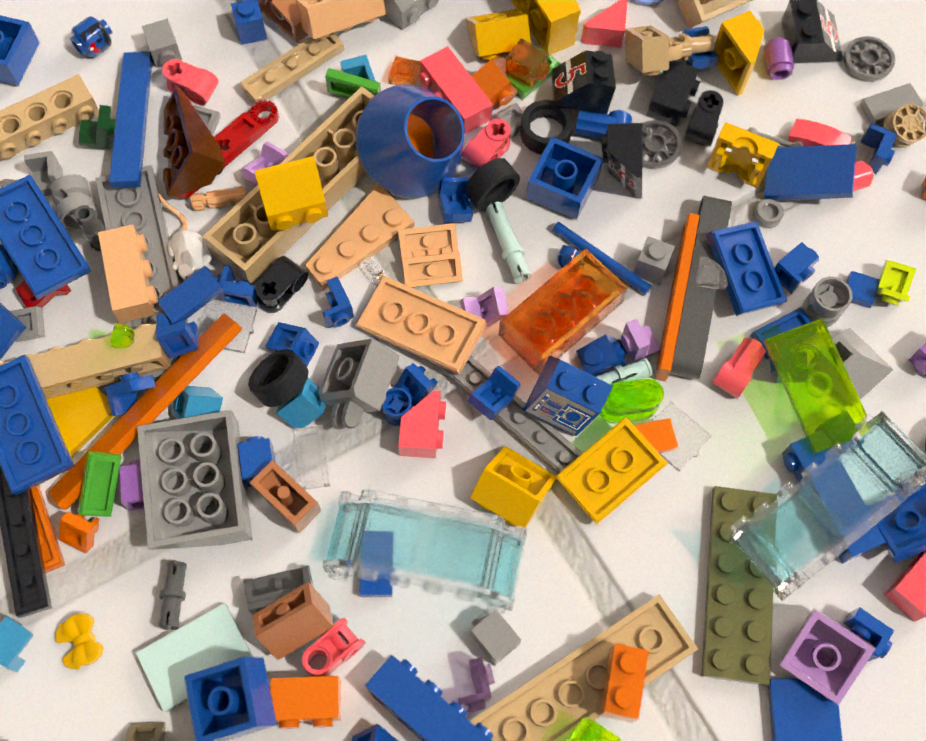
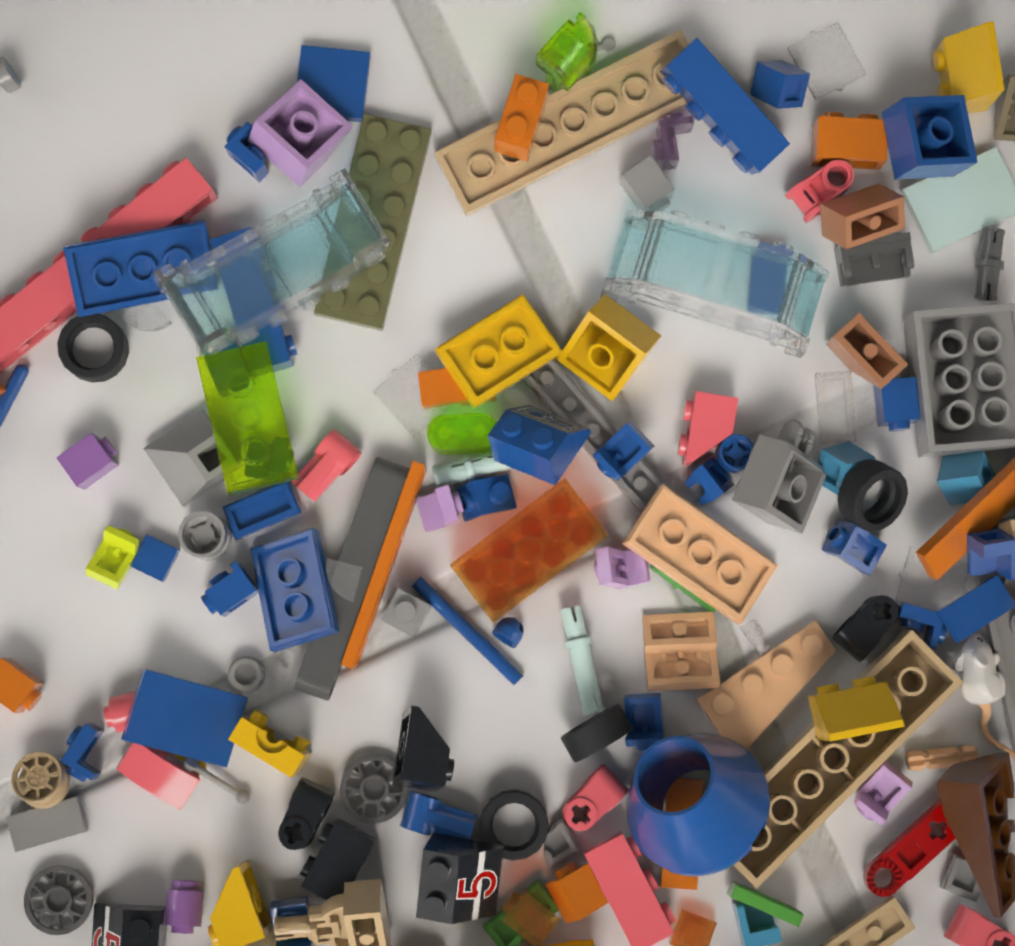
camera: 175 degrees left, 15 degrees up
(341, 308) = (797, 598): blue bracket -> none
(564, 178) = (502, 737): blue brick -> none

